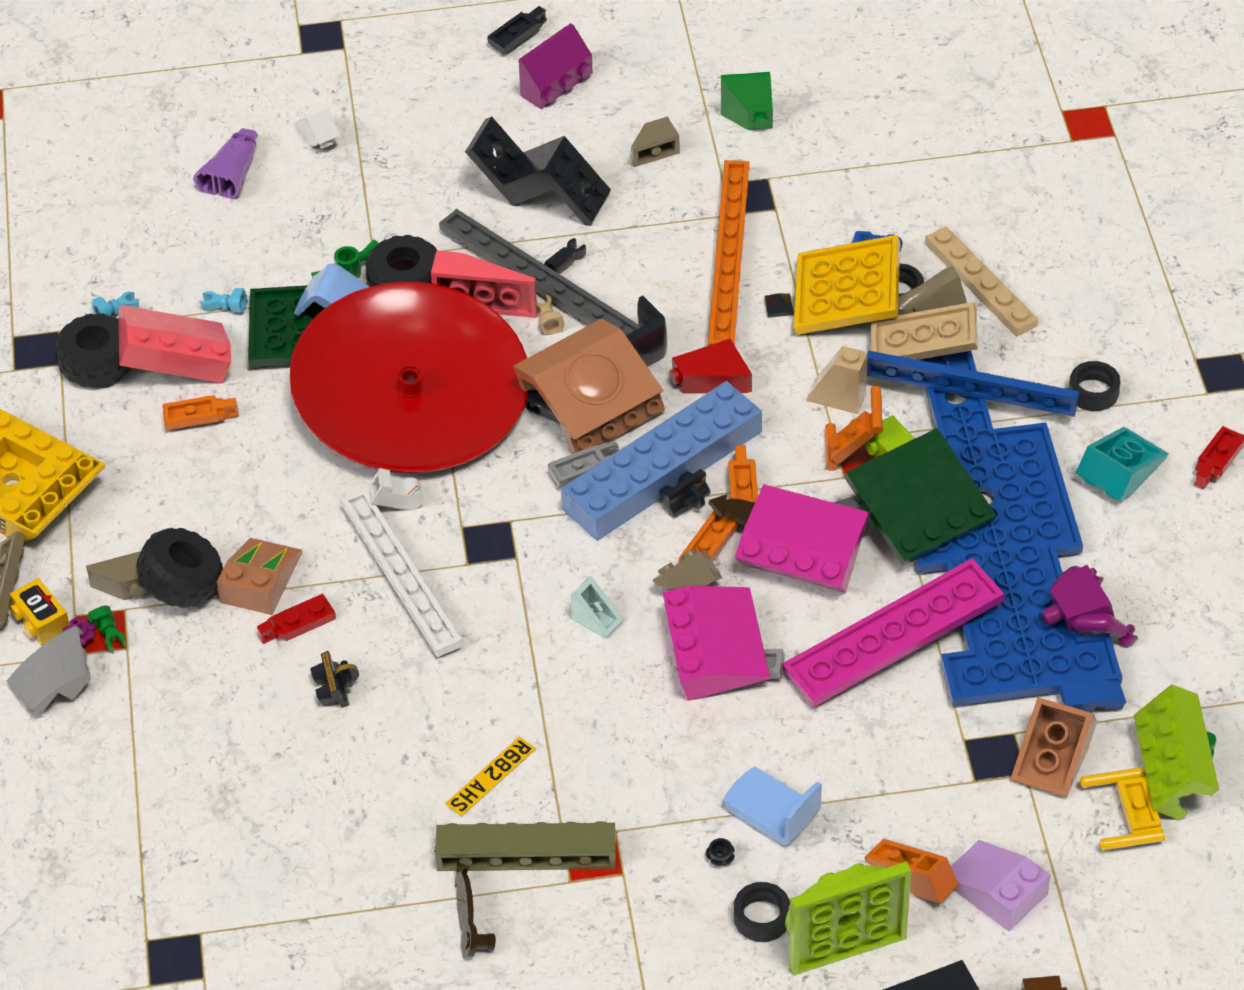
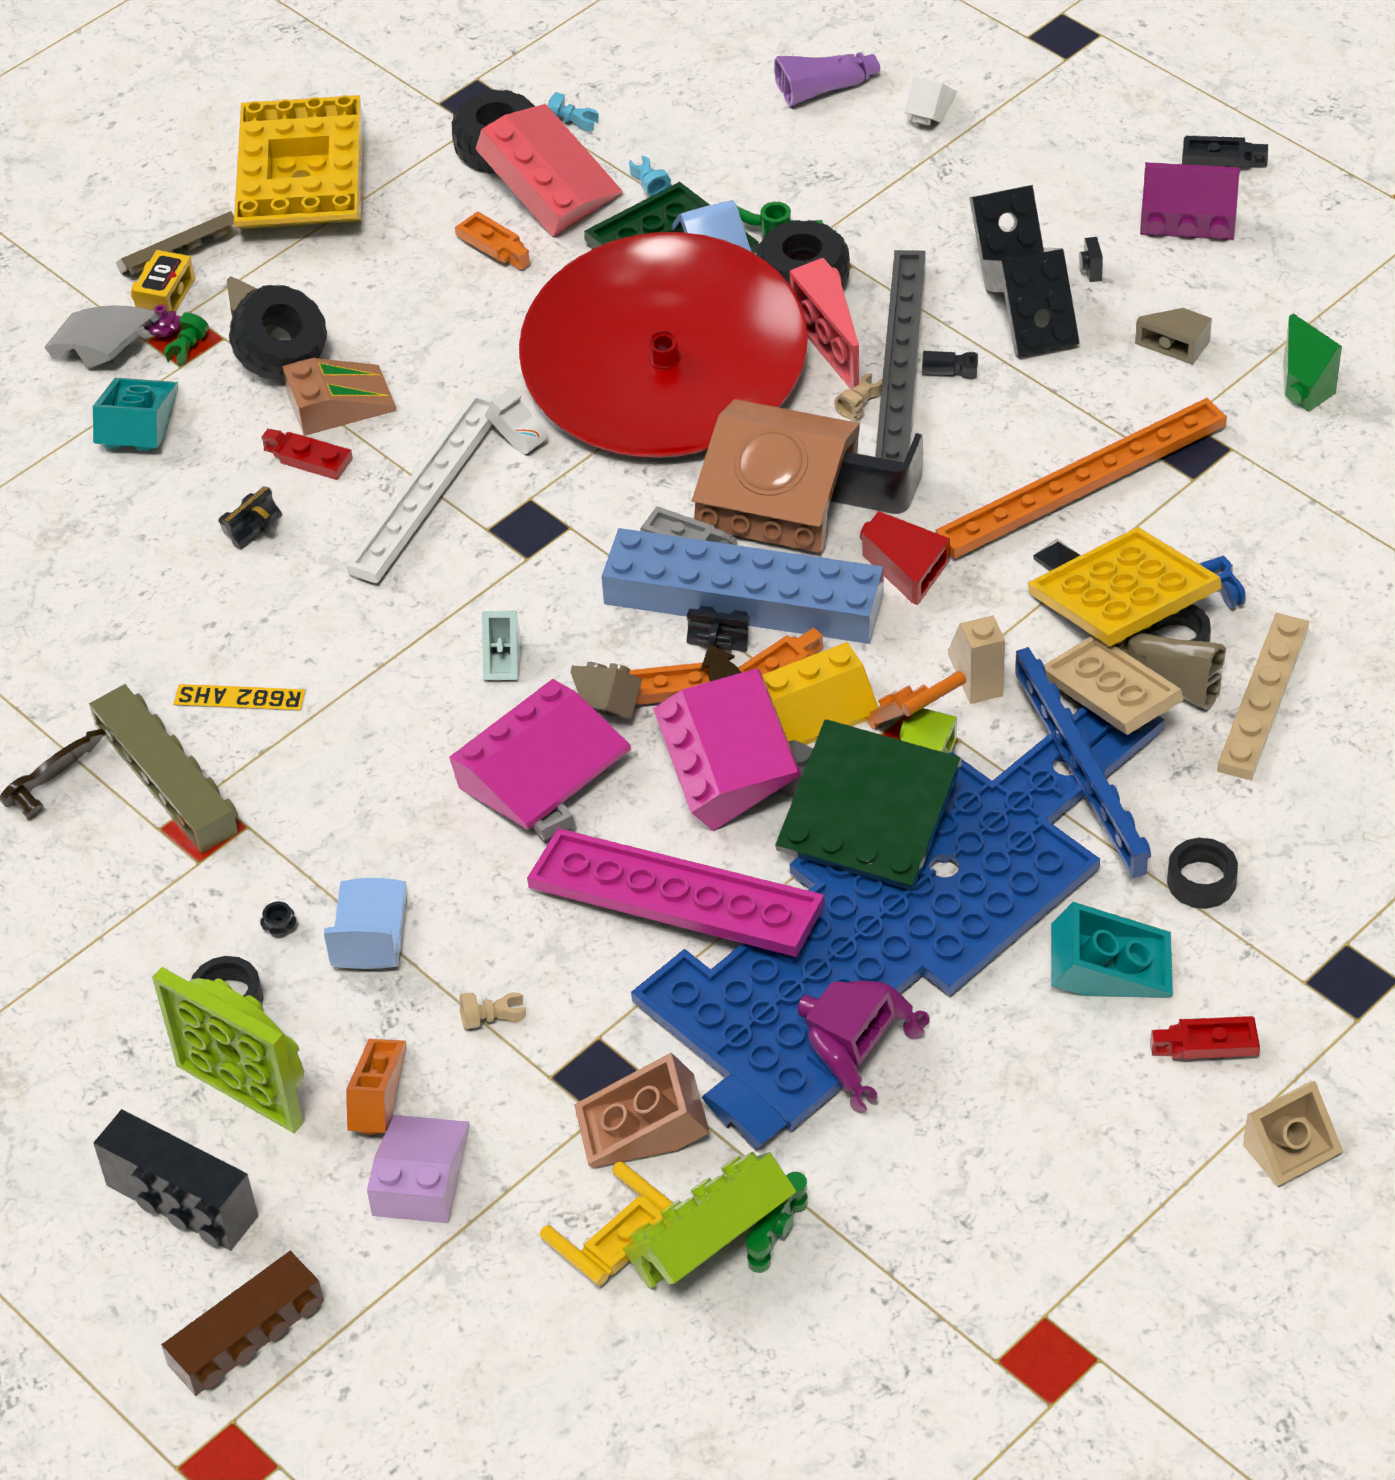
camera: 55 degrees right, 0 degrees up
(157, 692) = (133, 413): none -> teal slope
(546, 134) = (1091, 259): none -> black plate
(794, 465) = (821, 688): none -> yellow slope
(894, 788) = (472, 1013): none -> tan piece

